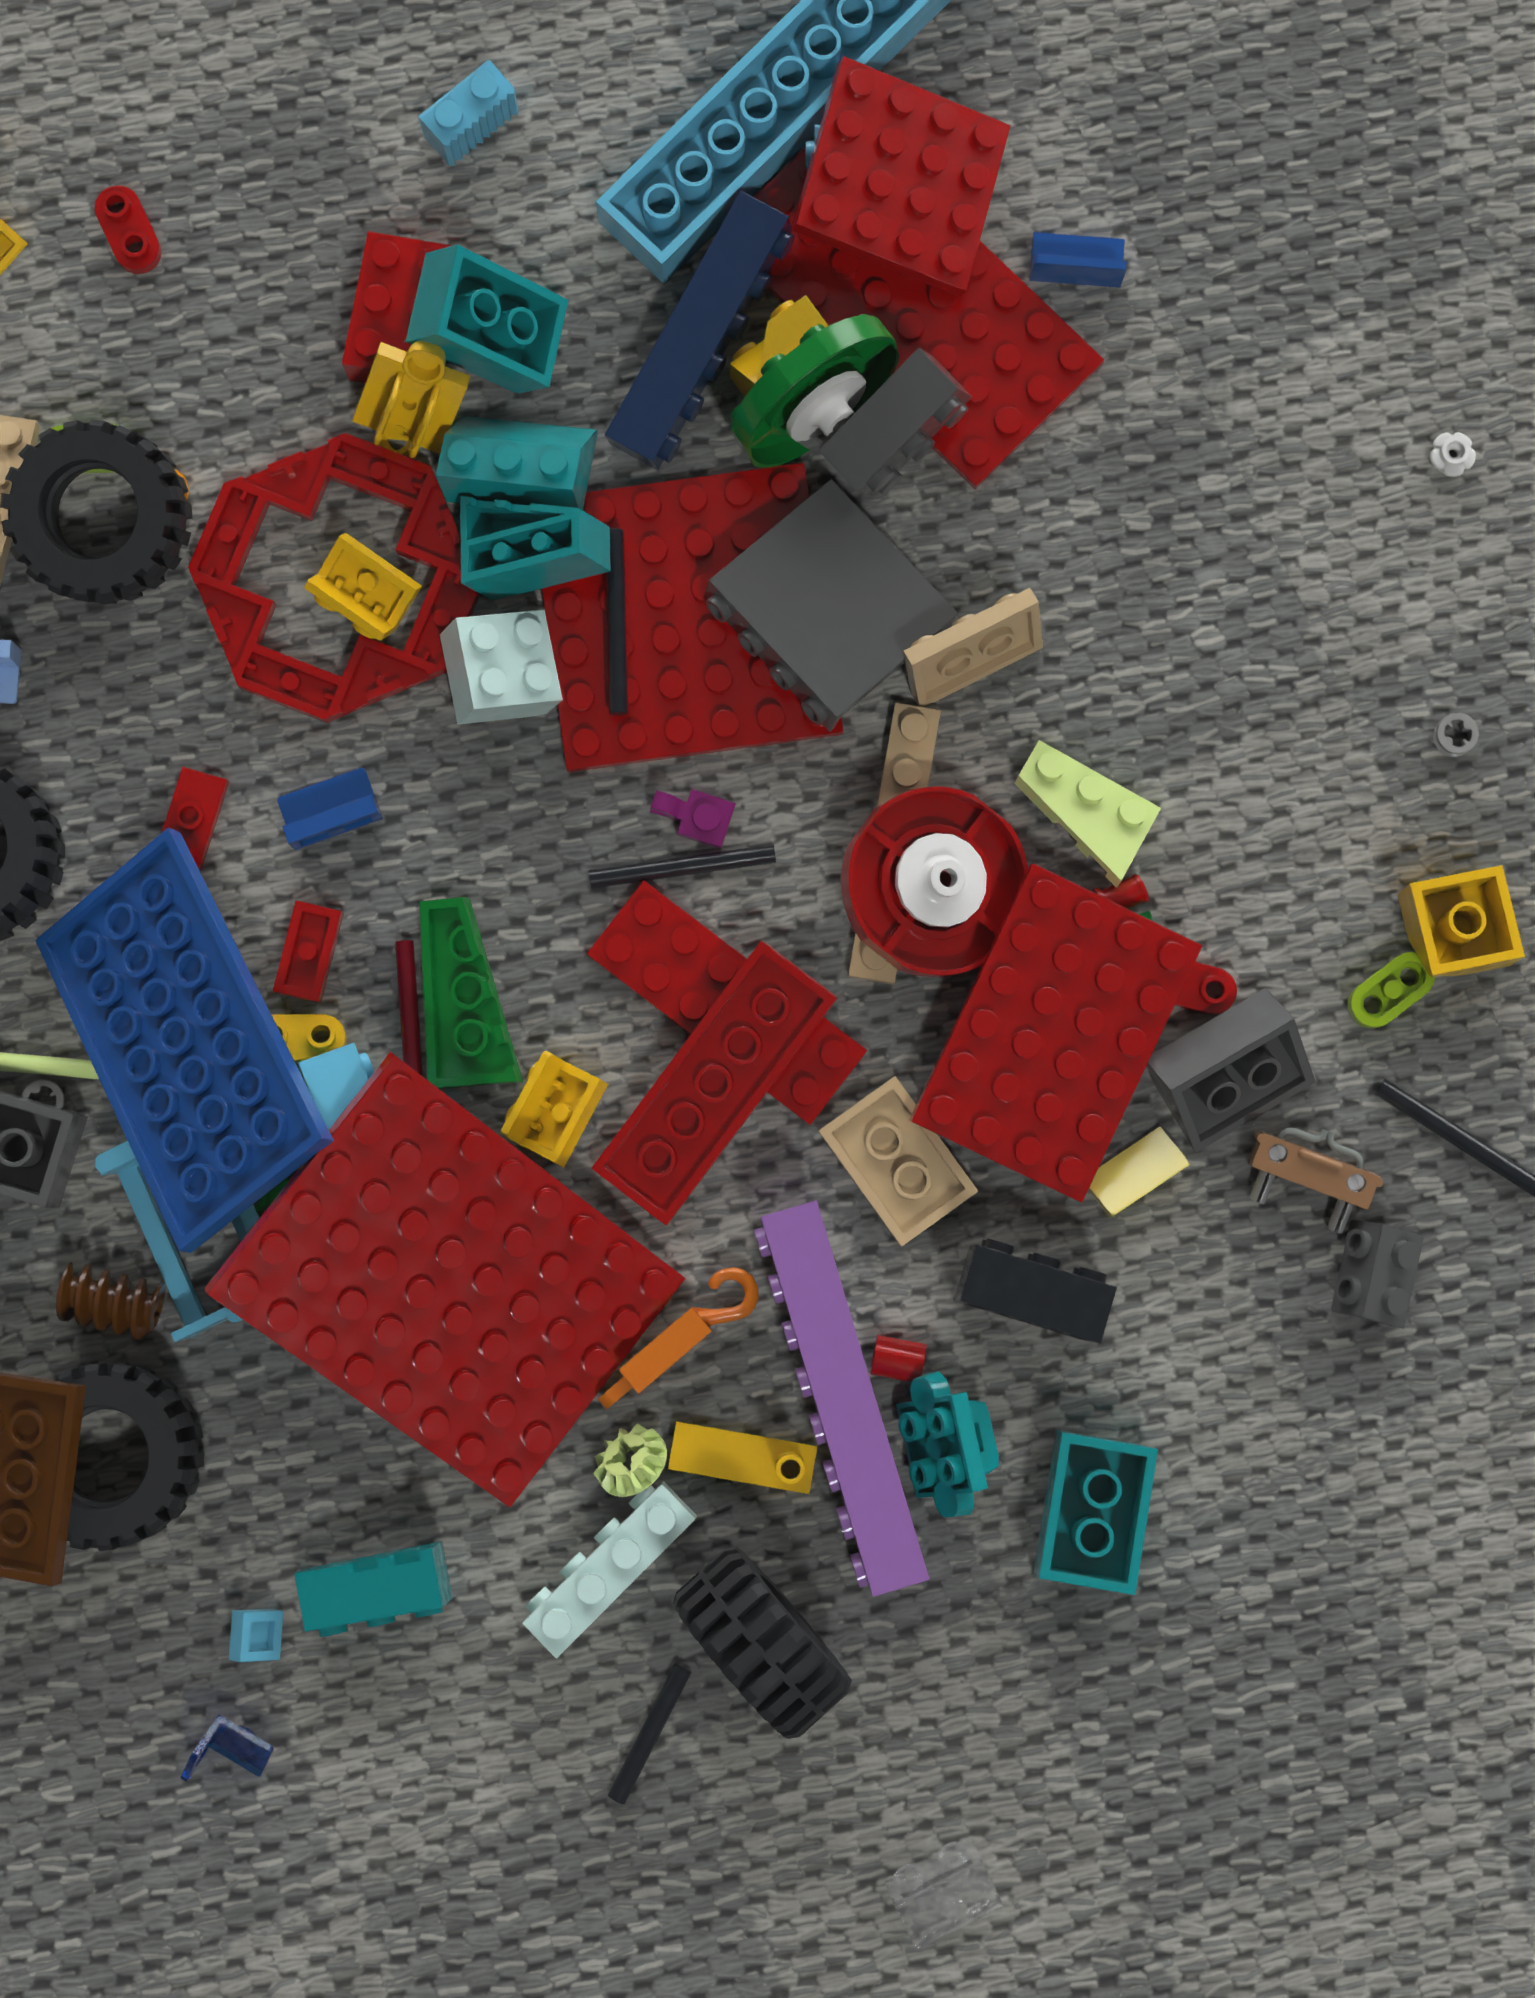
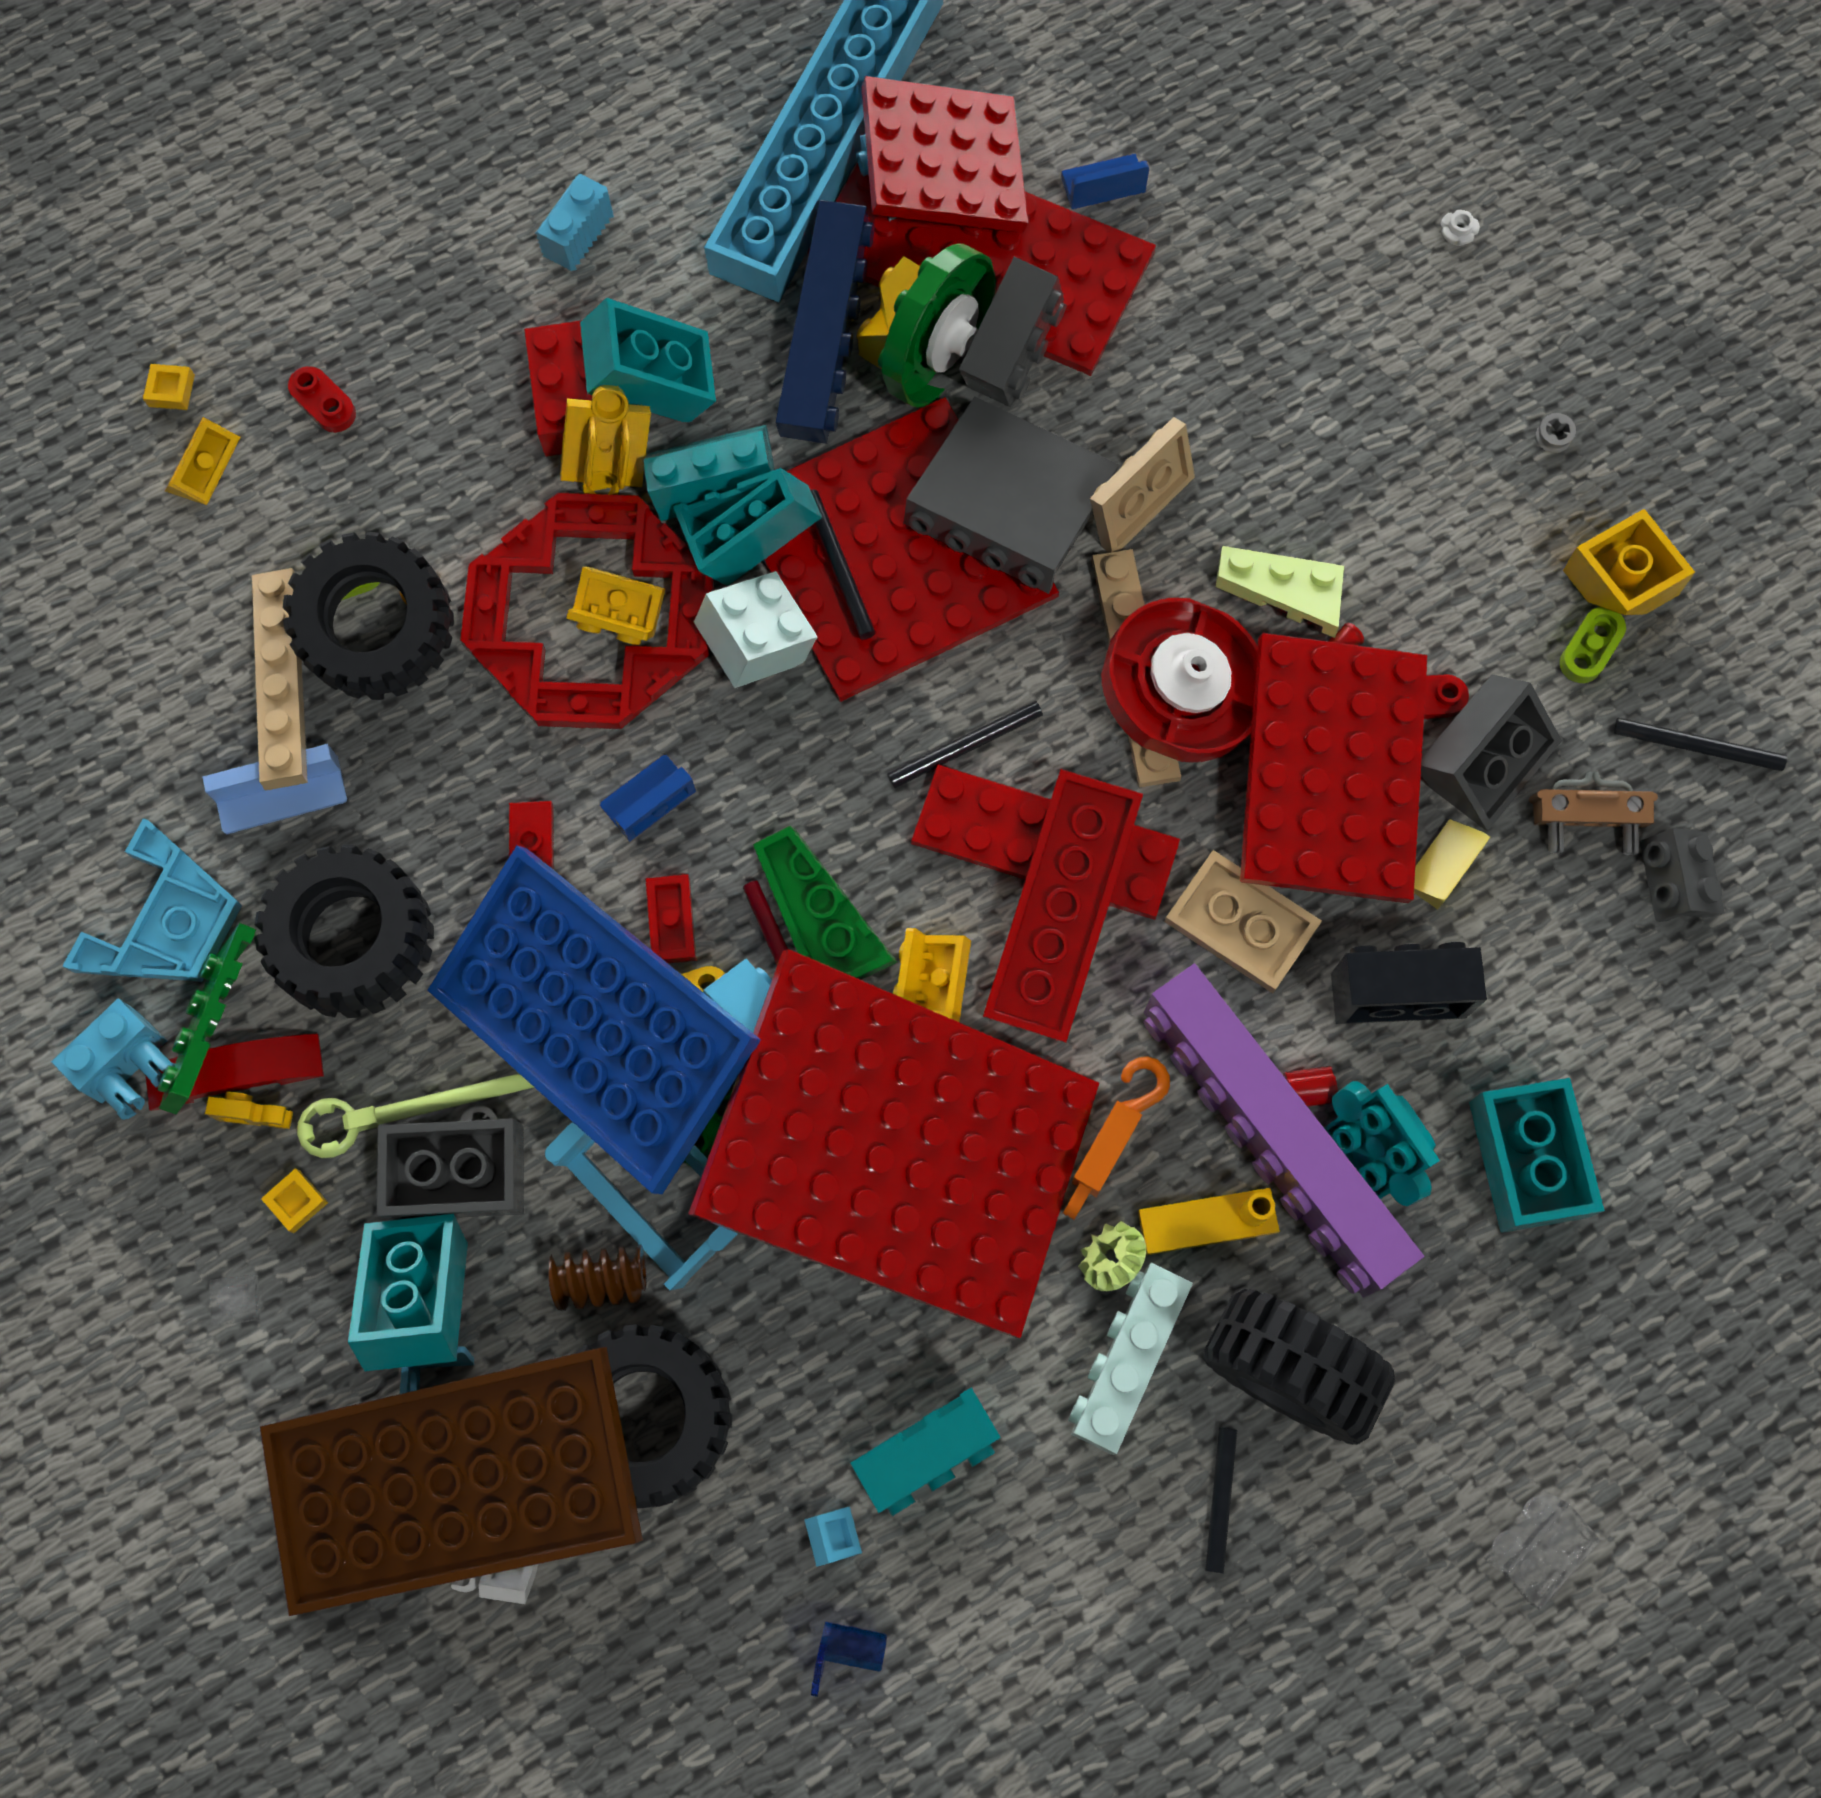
camera: 15 degrees left, 10 degrees down
(701, 817) = (966, 699): magenta plate -> none

